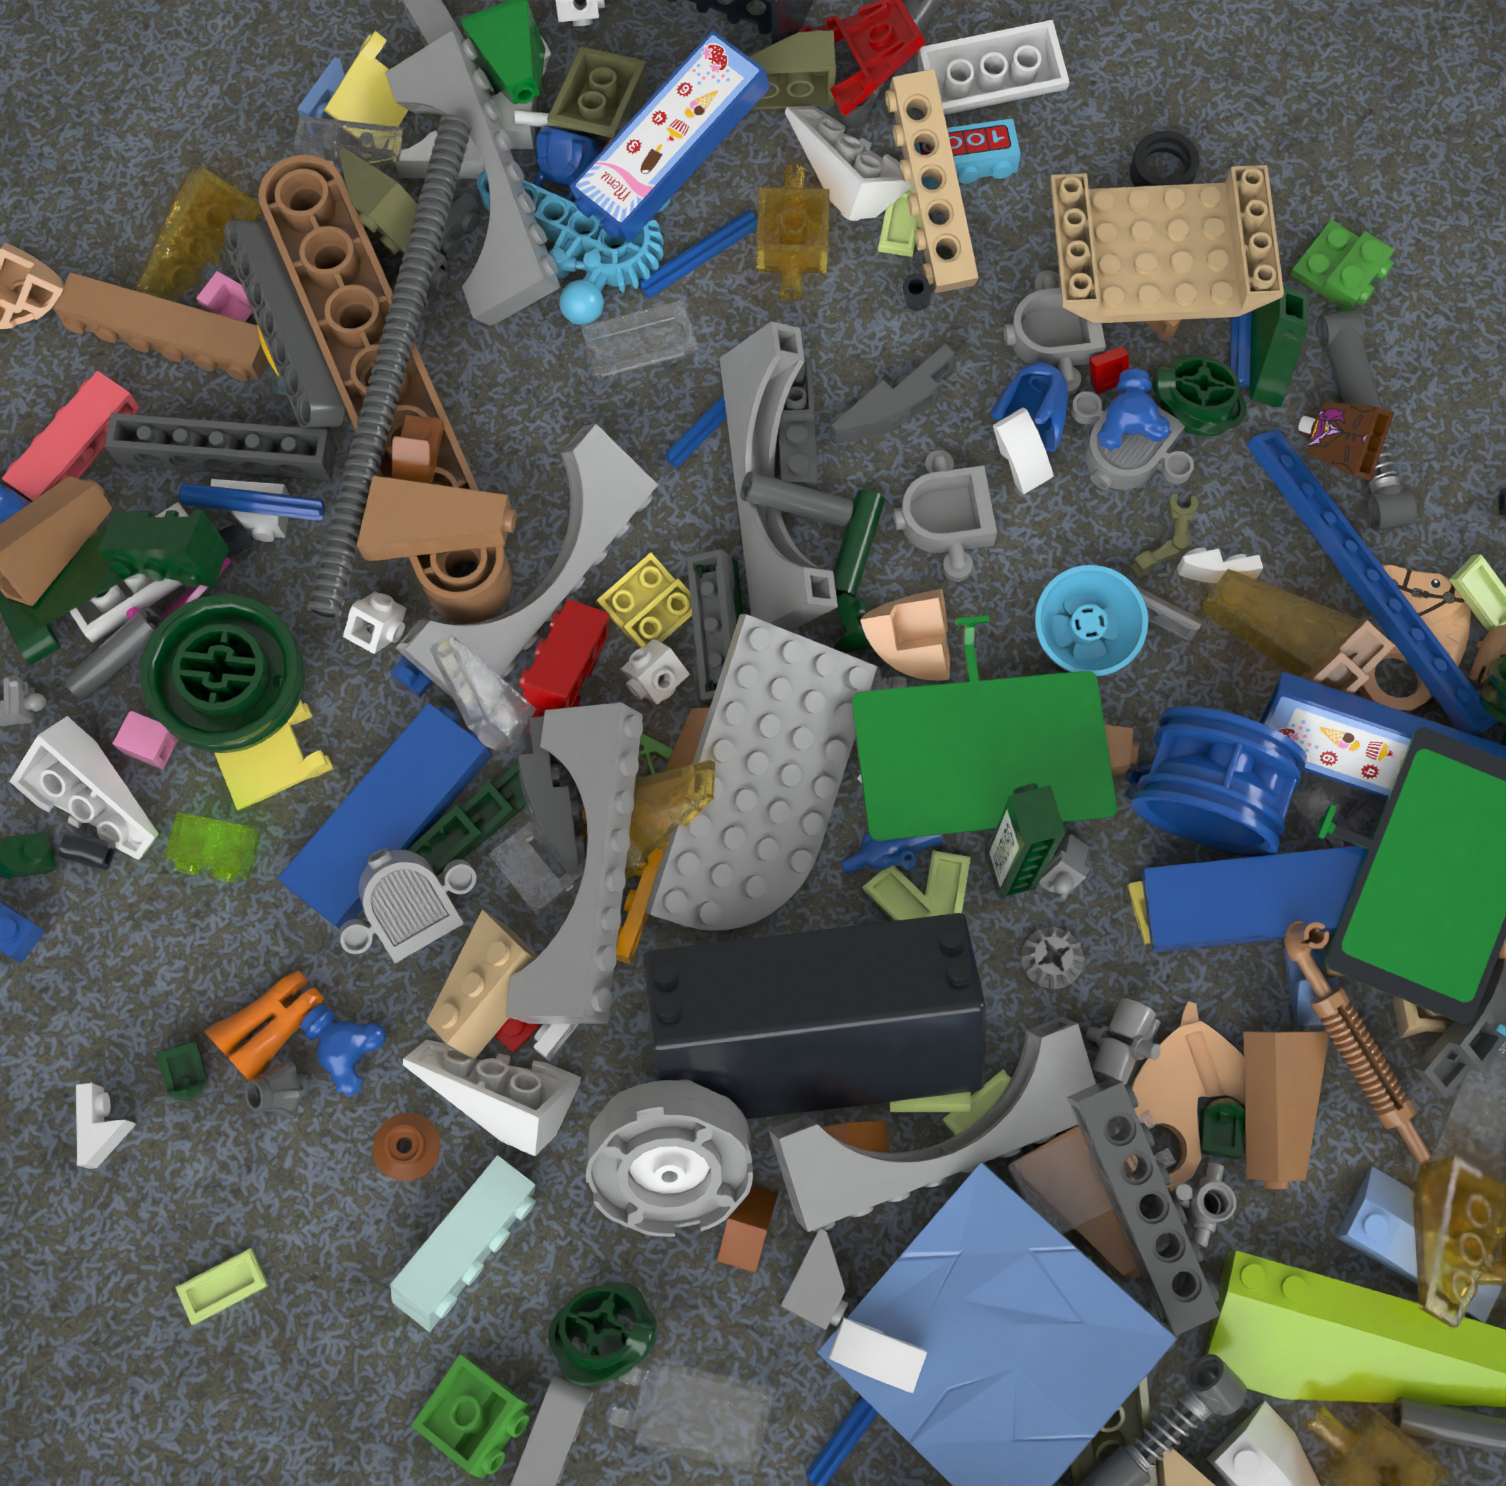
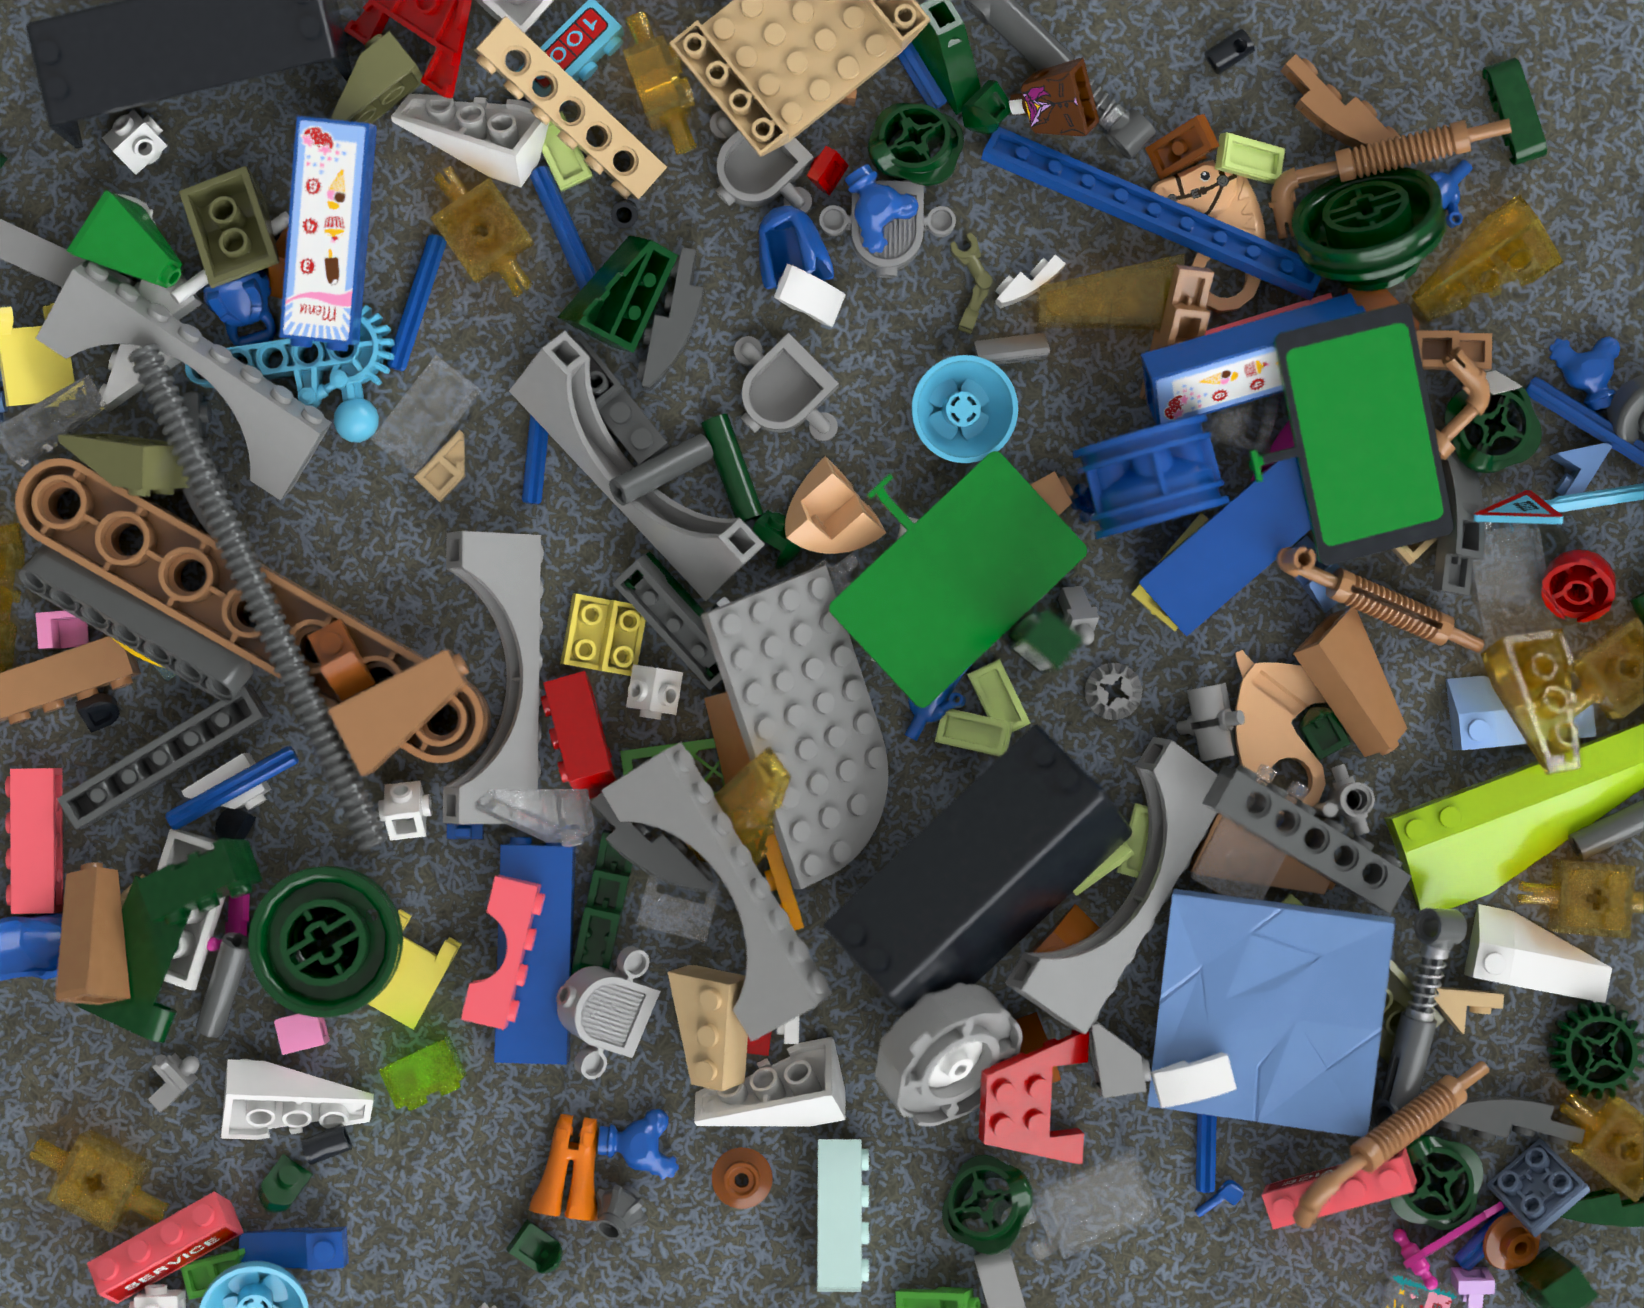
camera: 40 degrees left, 15 degrees up
(202, 380) = (98, 711): none -> black tile
(321, 818) = (513, 906): none -> coral arch
(622, 389) = (445, 468): none -> tan tile
(700, 1256) = (1018, 1101): none -> wing
(858, 281) = (562, 225): none -> blue axle
(867, 348) = (622, 294): none -> dark green wedge
(1019, 213) = (656, 79): none -> clear yellow brick
(1278, 409) = (986, 108): none -> dark green plate
(1432, 547) = (1182, 147): none -> dark orange slope

